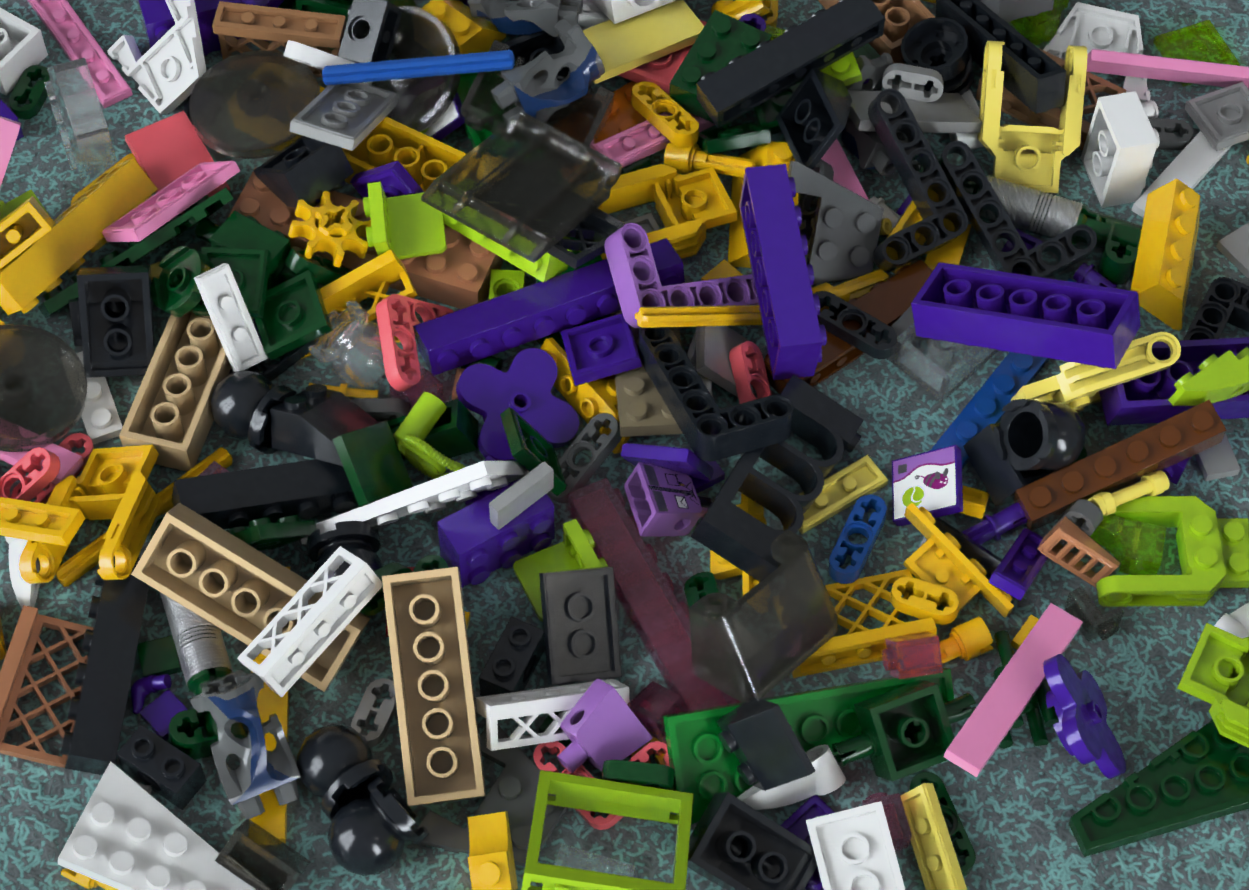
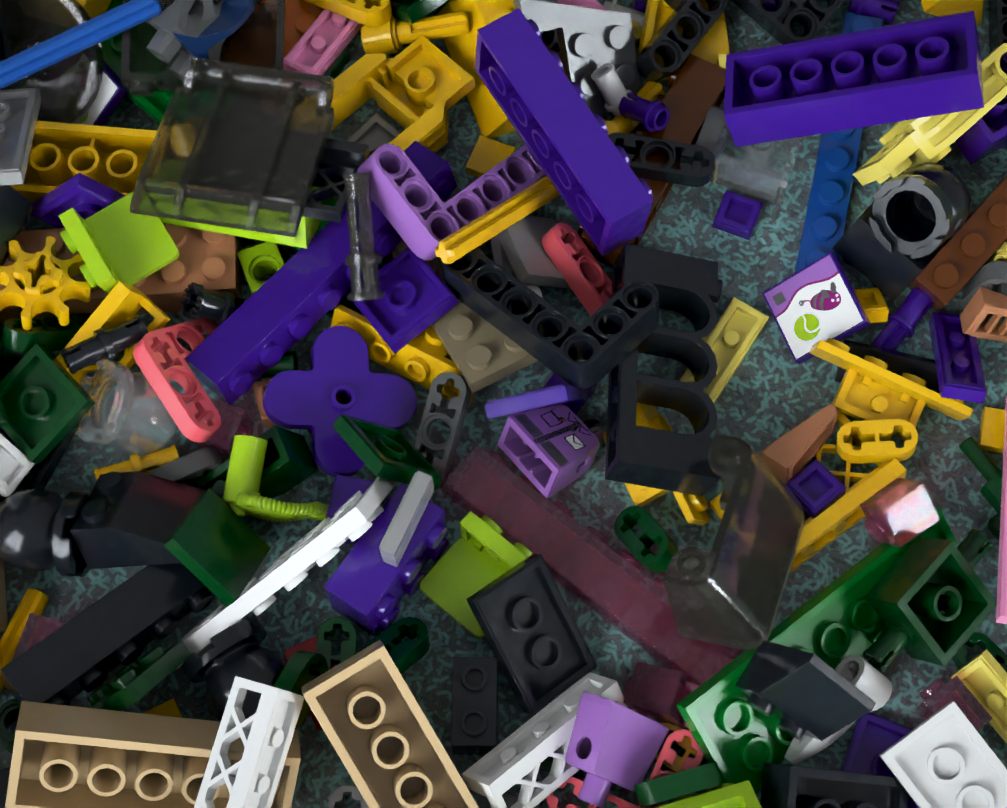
camera: 20 degrees left, 10 degrees up
(357, 290) = (104, 344): none -> black pin
(450, 294) = (209, 304): none -> black connector
(482, 598) = (404, 652): none -> dark green beam
(581, 303) = (362, 258): none -> clear smoke pin
(843, 261) = (610, 87): none -> white pin
(857, 614) = (816, 488): none -> dark purple tile
(858, 552) = (778, 383): blue beam -> none
(860, 578) = (797, 447): none -> nougat slope
(864, 290) = (651, 114): none -> dark purple pin
(902, 396) = (737, 214): none -> dark purple tile
(966, 641) = (939, 463): yellow piece -> none

